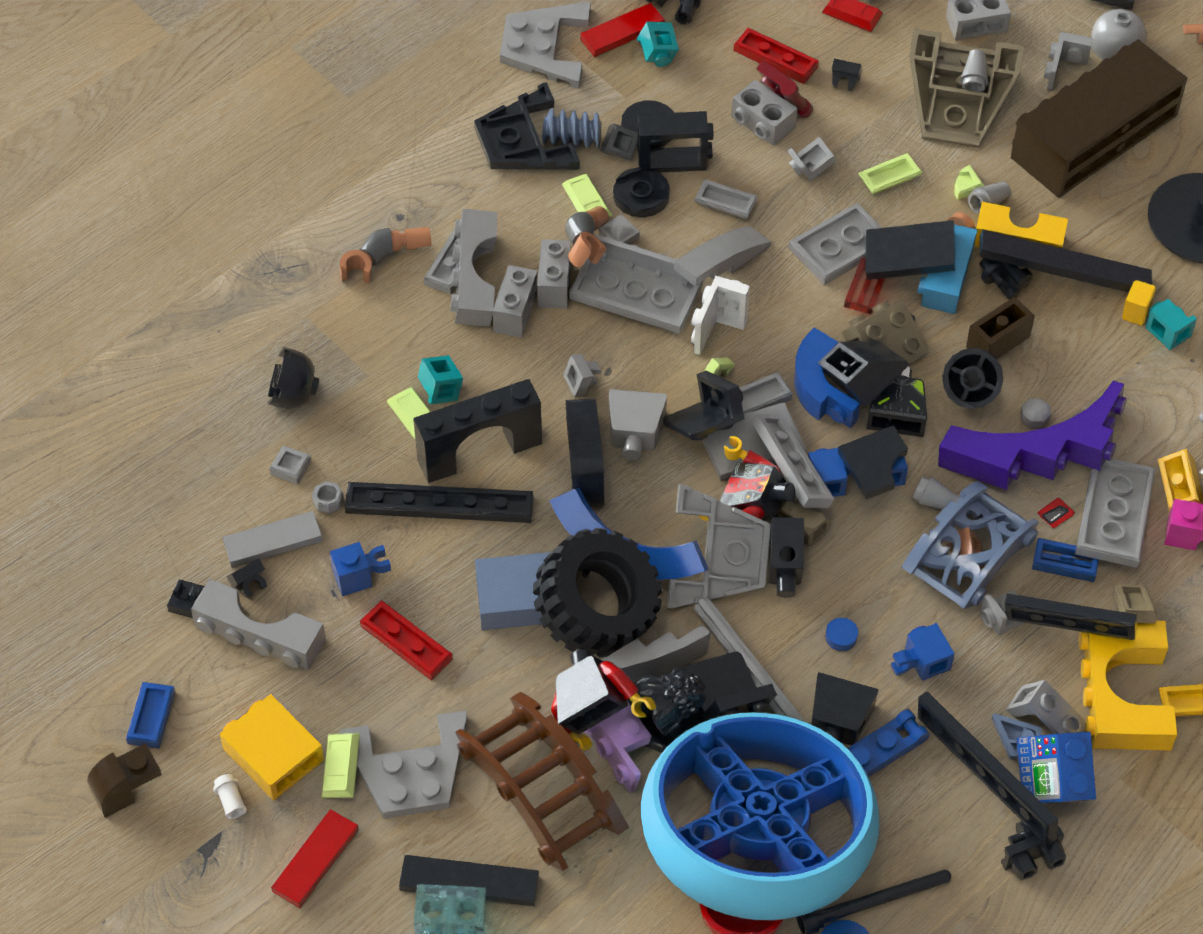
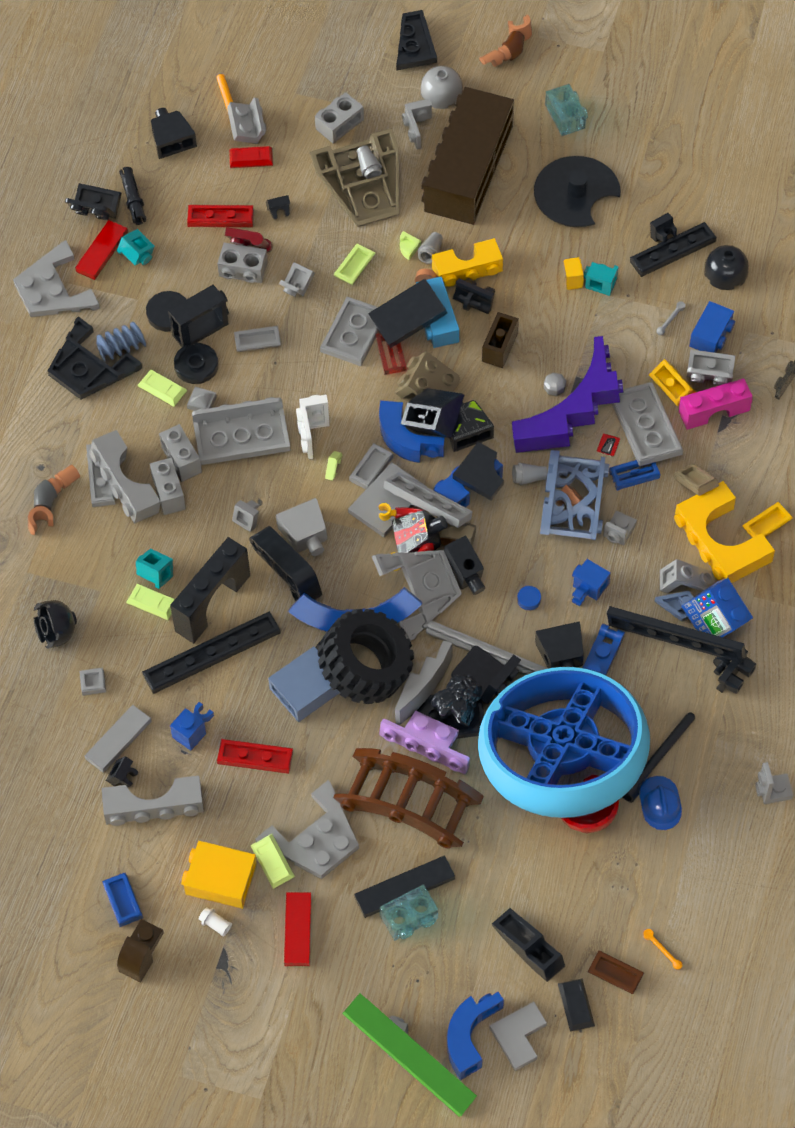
camera: 30 degrees left, 5 degrees up
(184, 597) = (90, 809): black tile -> none
(327, 497) = (135, 689): light grey tile -> none
(580, 231) = (181, 414): nougat piece -> none
(591, 694) = (410, 723): torso -> none
(619, 142) = (157, 334): dark grey slope -> none
(717, 411) = (353, 493): black bracket -> none
(721, 254) = (285, 381): light grey slope -> none
(972, 378) = (505, 382): black cylinder -> none
(1061, 261) = (509, 270): black tile -> none
(1071, 616) = (667, 509): black tile -> none

